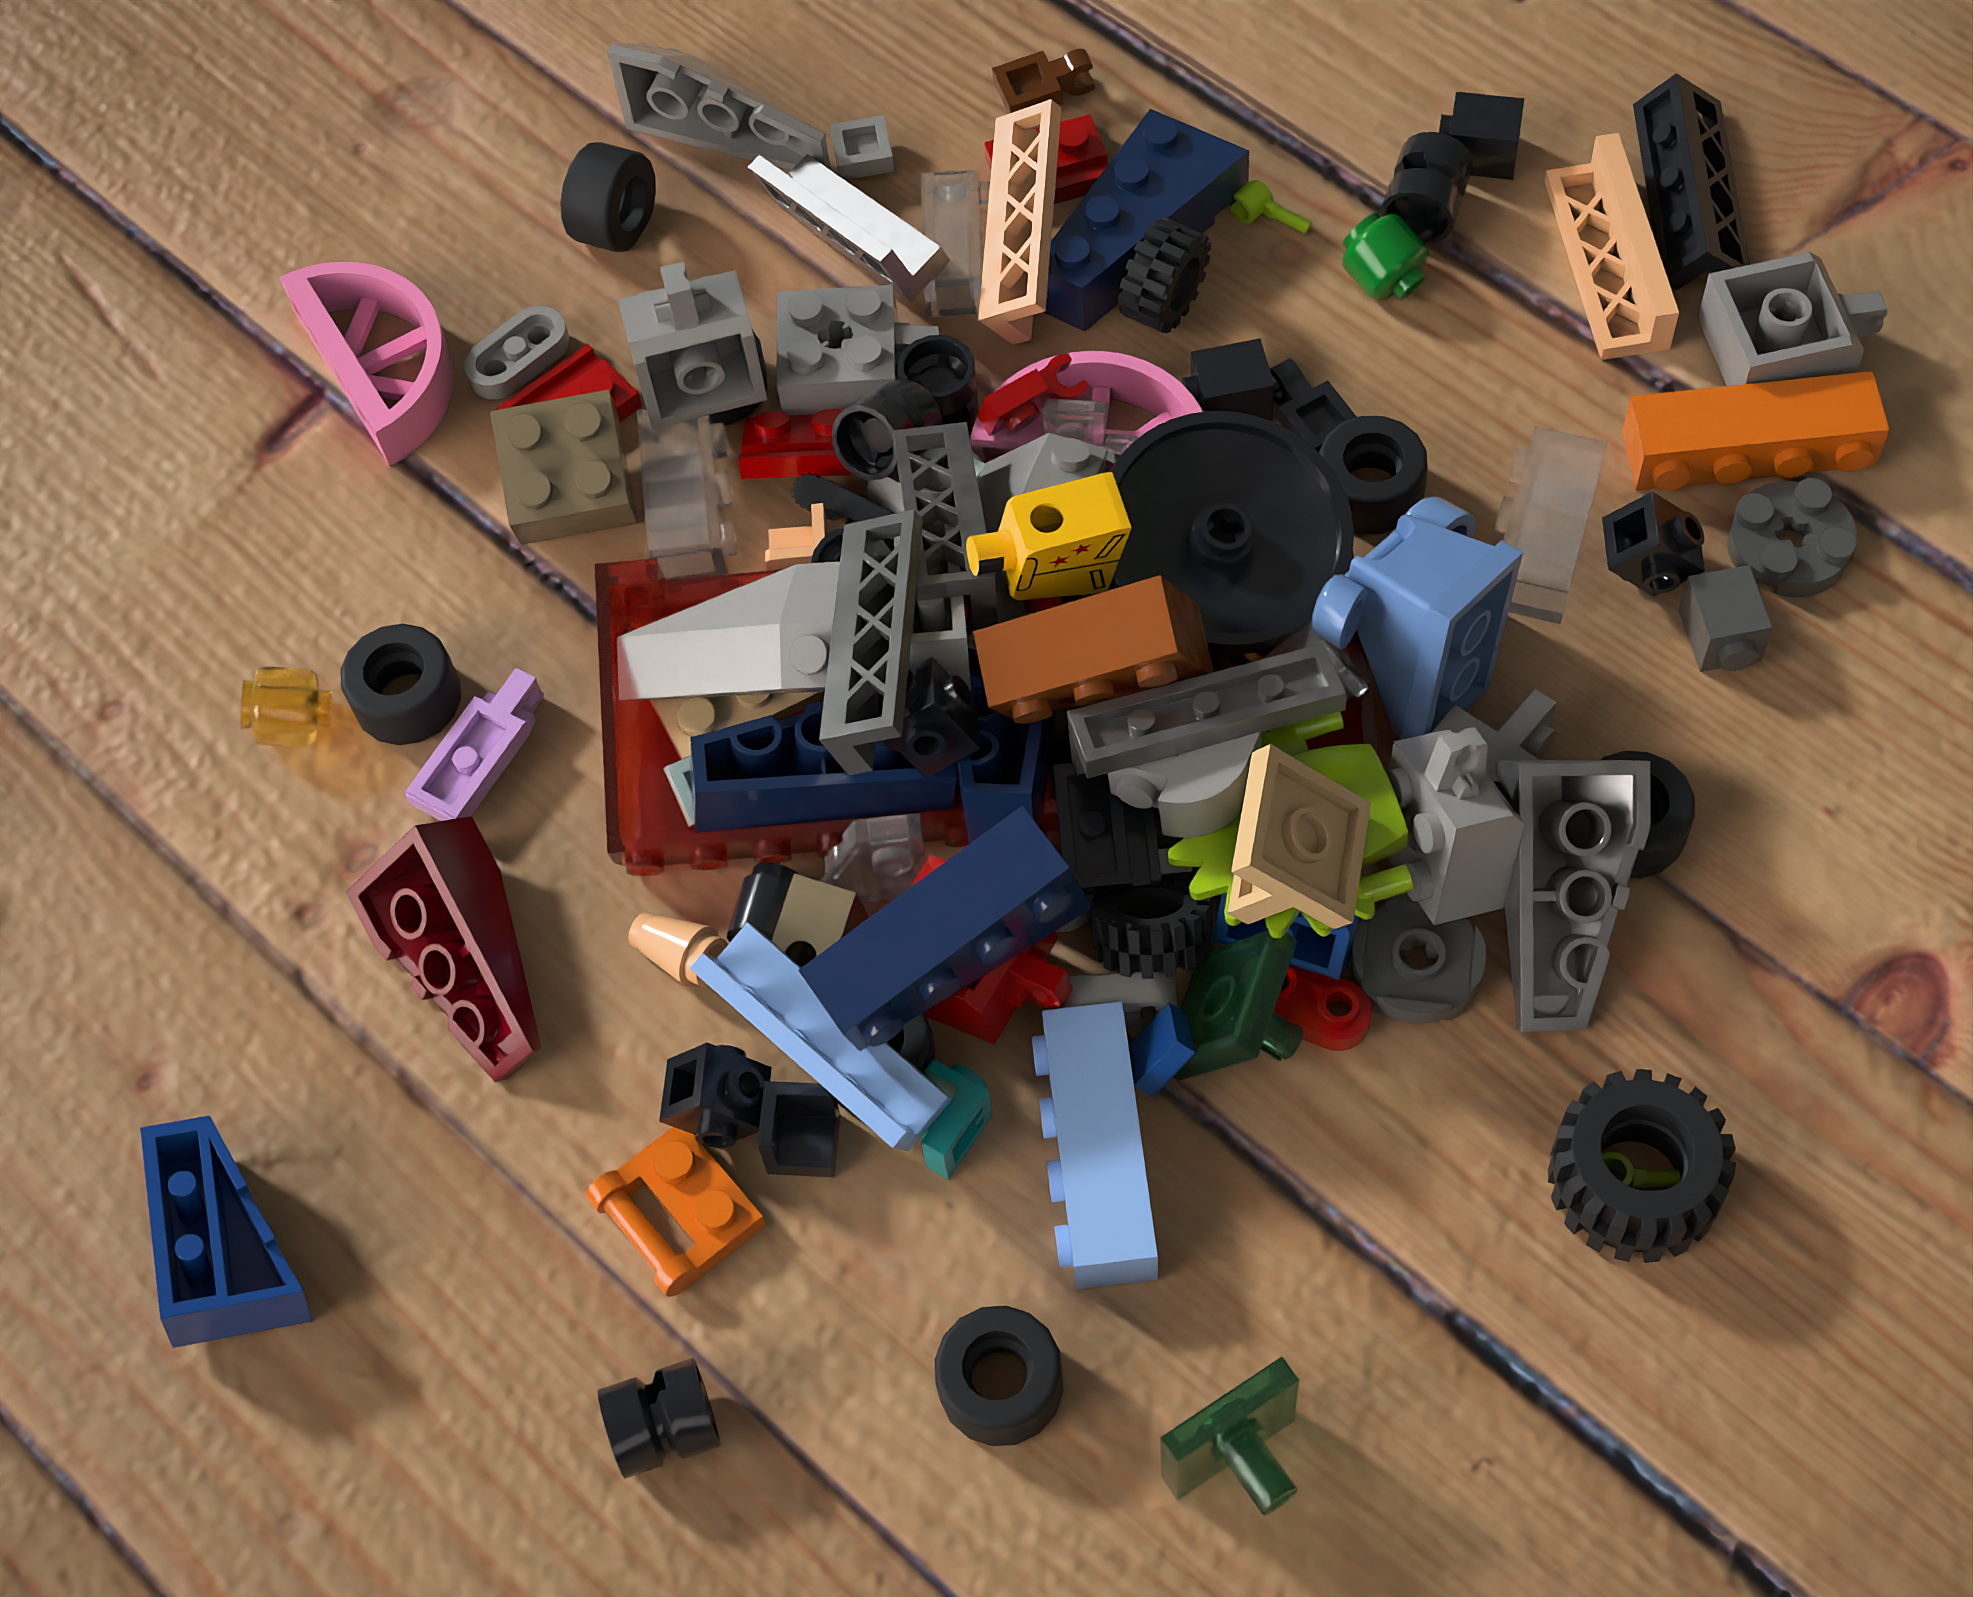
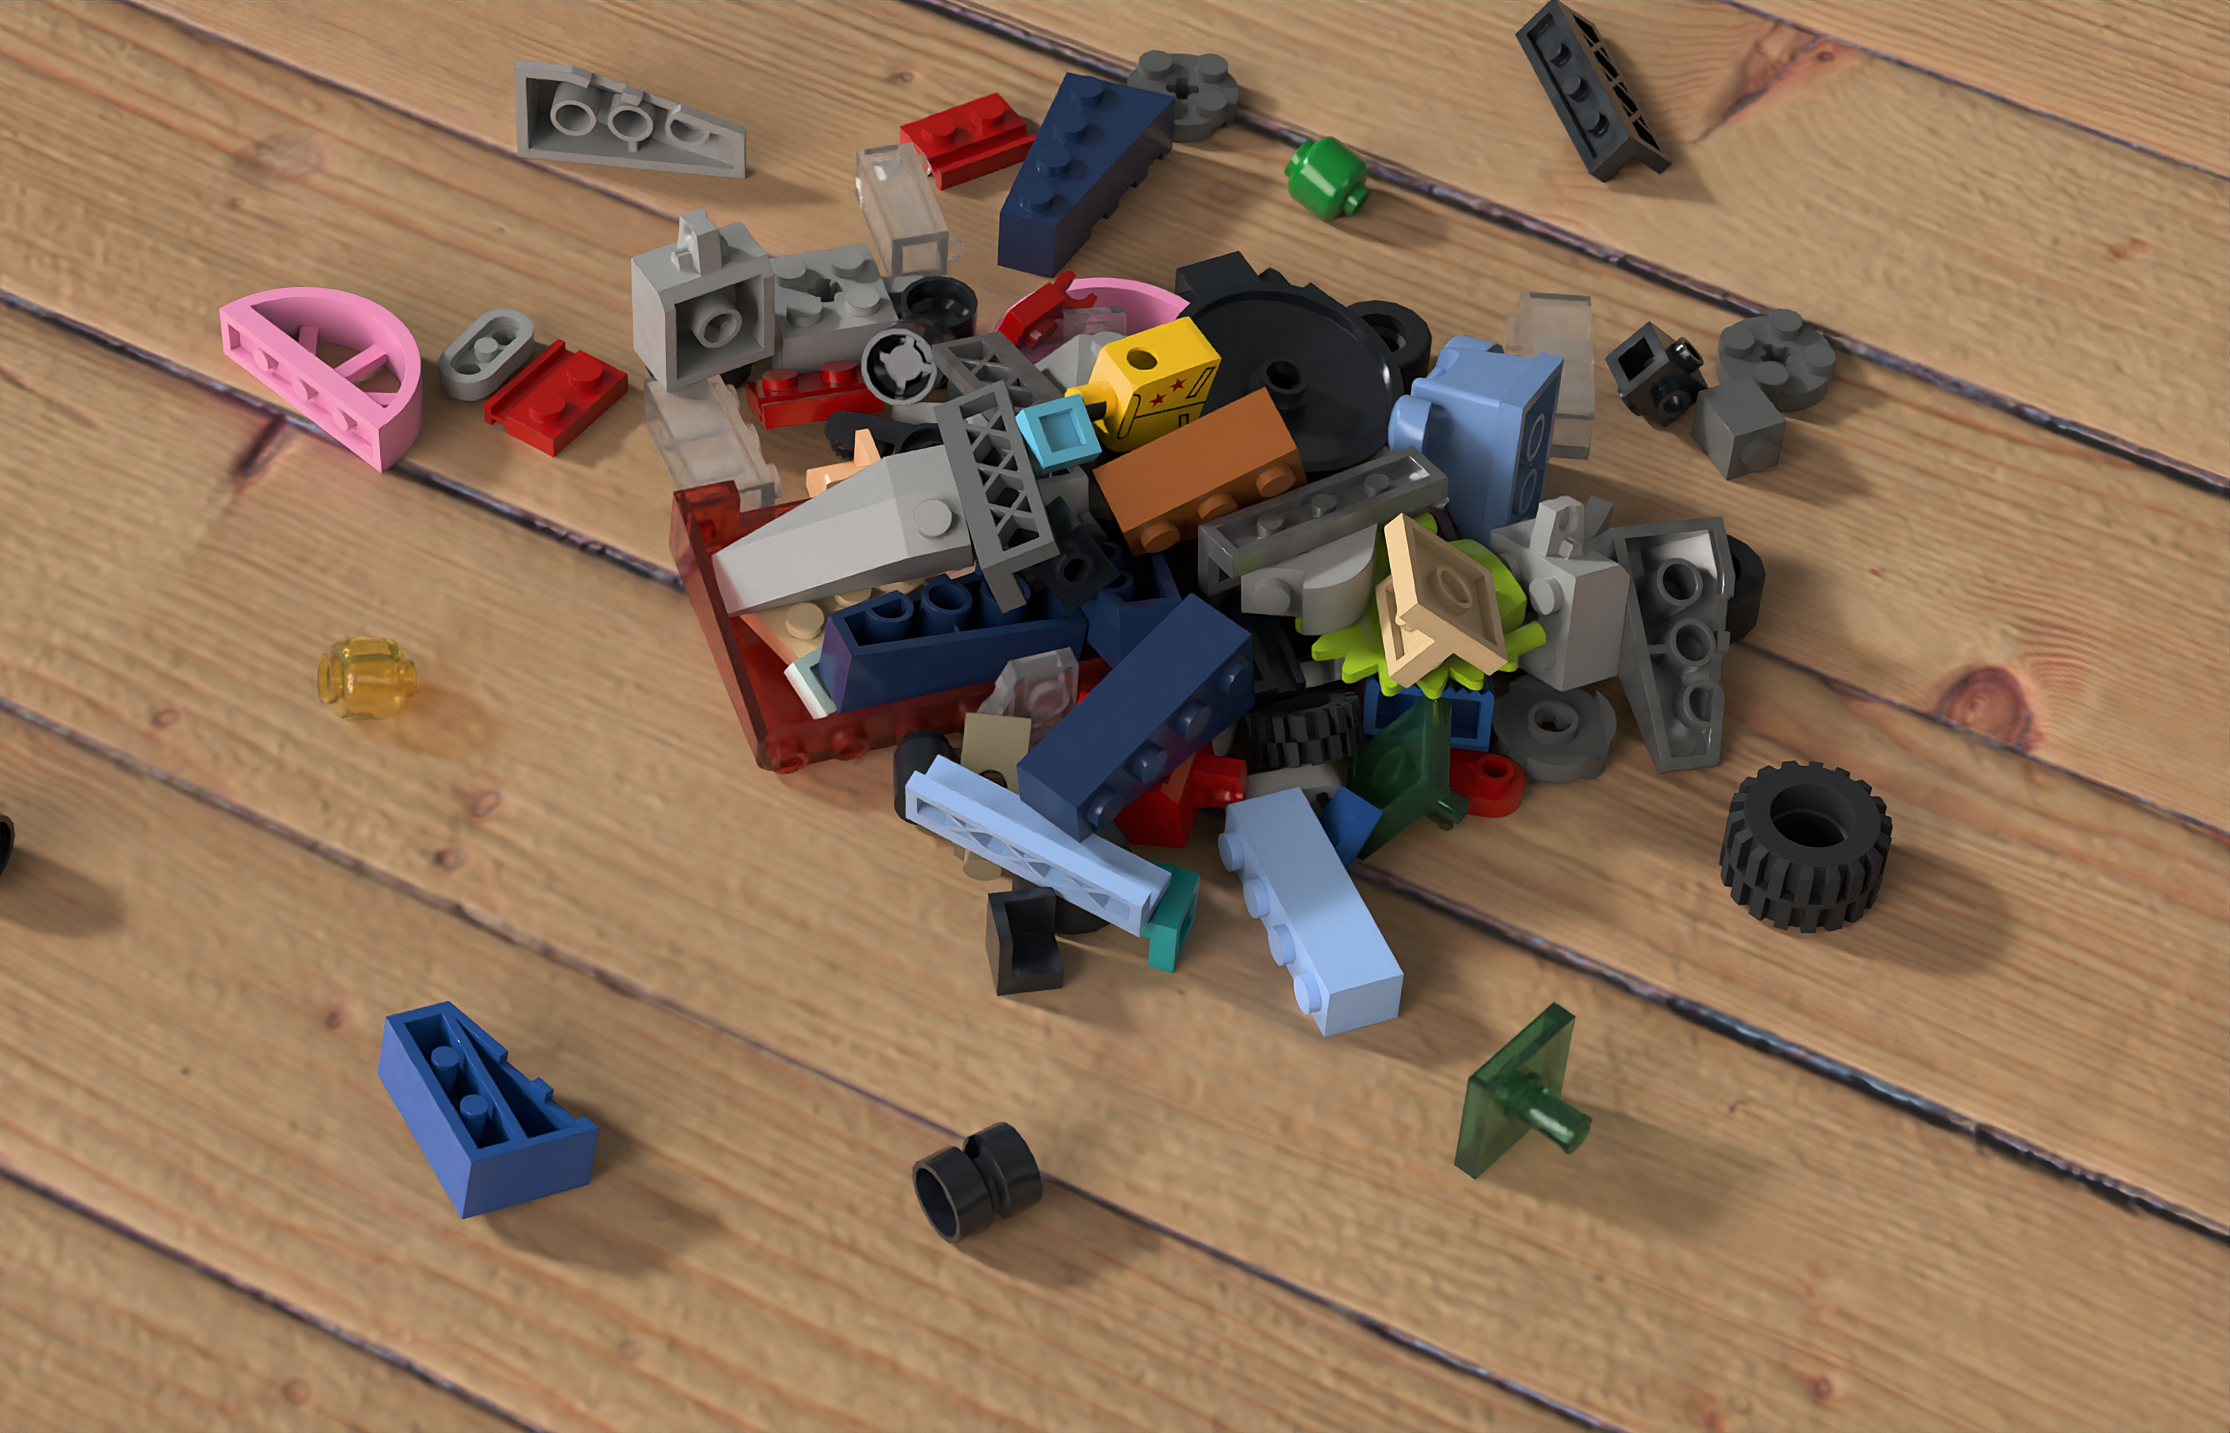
camera: 25 degrees left, 15 degrees down
(393, 653) = (473, 671): black tyre -> none
(448, 922) = (618, 843): dark red wedge -> none
(476, 750) = (578, 693): lavender hinge -> none
(563, 467) = (586, 437): dark tan brick -> none
(608, 196) = (537, 207): black tyre -> none
(675, 944) = (848, 820): light nougat cone -> none
(694, 1195) = (933, 1017): orange plate -> none
(714, 1094) = (936, 921): black brick -> none
(854, 224) = (798, 201): fence -> none
(862, 147) = (778, 143): light grey plate -> none
(945, 588) = (1058, 434): none -> medium azure plate
(999, 1331) = (1283, 1132): black tyre -> none
(1020, 220) = (962, 180): light nougat fence -> none
(1038, 80) = (936, 72): reddish brown plate -> none
(1164, 275) = (1126, 211): black tyre -> none
(1256, 199) = (1186, 147): lime hand -> none
(1281, 113) = (1202, 79): none -> dark grey plate
(1429, 184) = (1352, 108): black wheel -> none
(1488, 129) = (1385, 71): black brick -> none
(1631, 241) = (1554, 152): light nougat fence -> none
(1755, 431) = (1716, 278): orange brick -> none
(1785, 321) = (1717, 194): light grey hinge -> none

